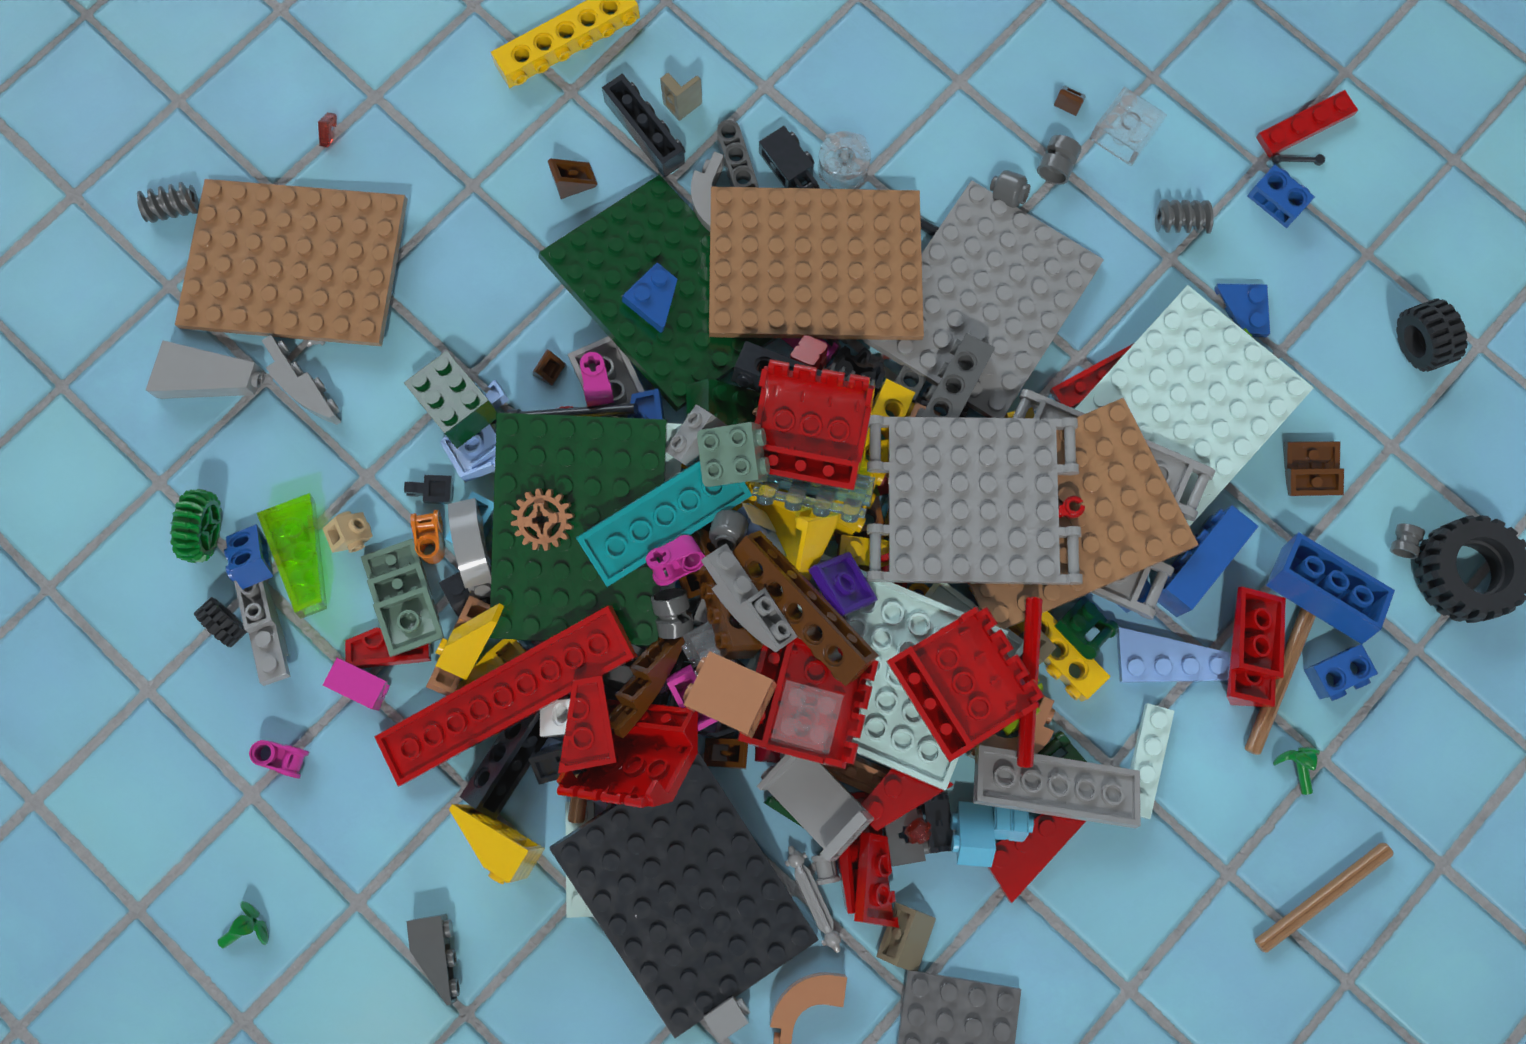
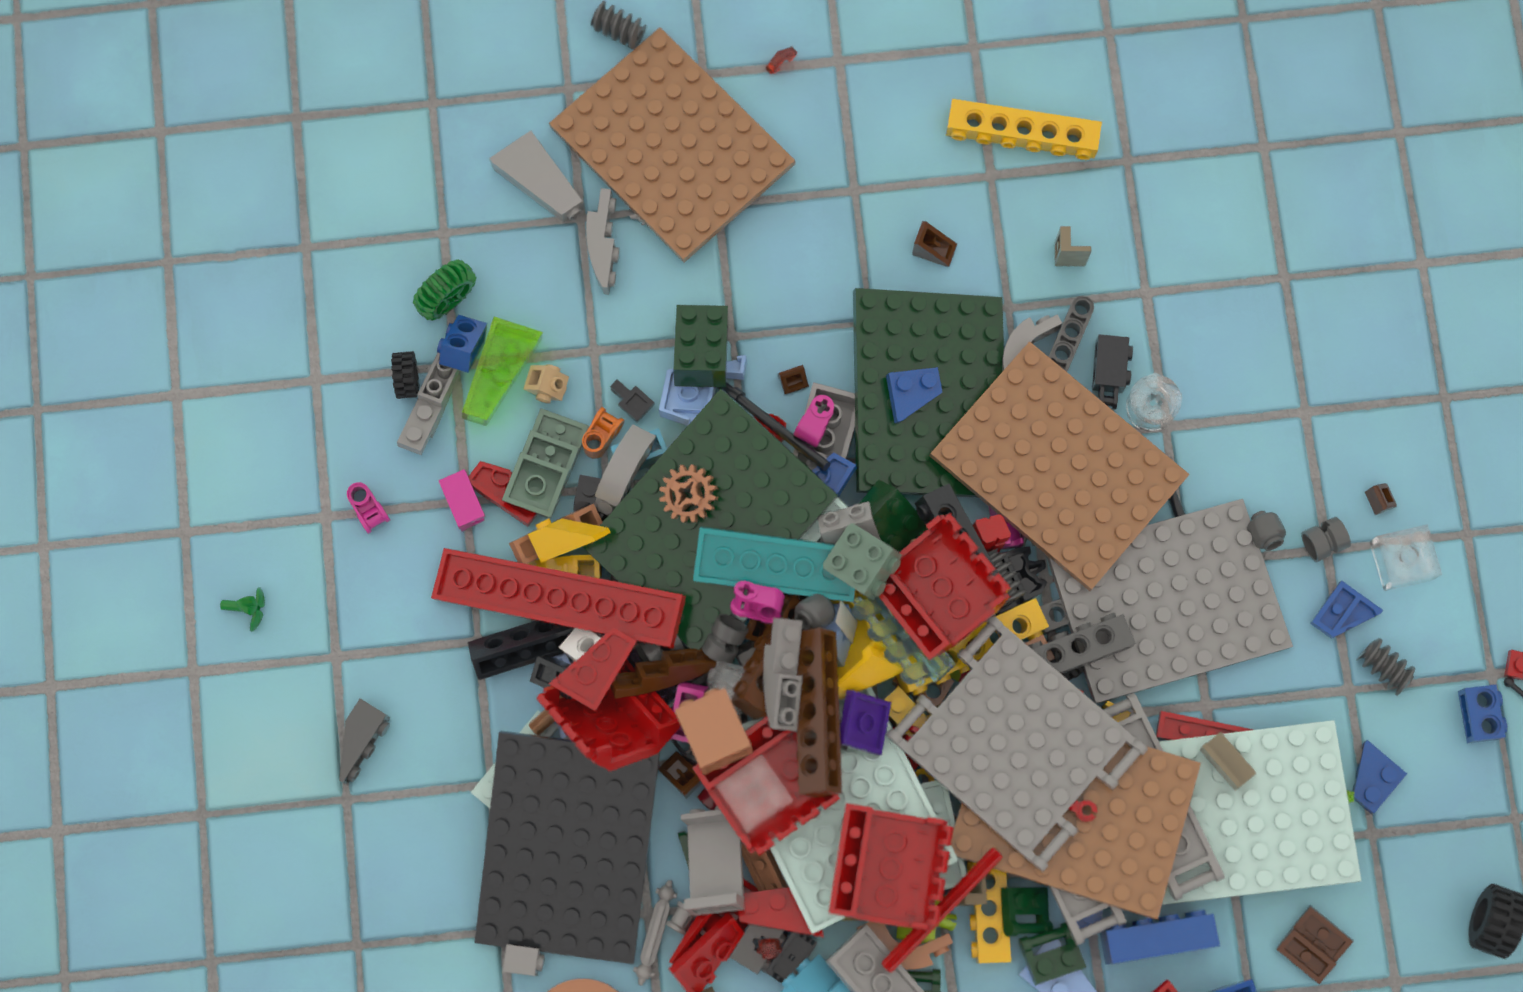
camera: 45 degrees right, 0 degrees up
(497, 846) = (465, 699): yellow slope -> none
(643, 125) = (1021, 250): black brick -> none
(1117, 202) = (1344, 611): none -> blue wing
(1139, 381) = (1227, 761): none -> dark tan panel
(1142, 647) = (1053, 962): none -> dark green plate

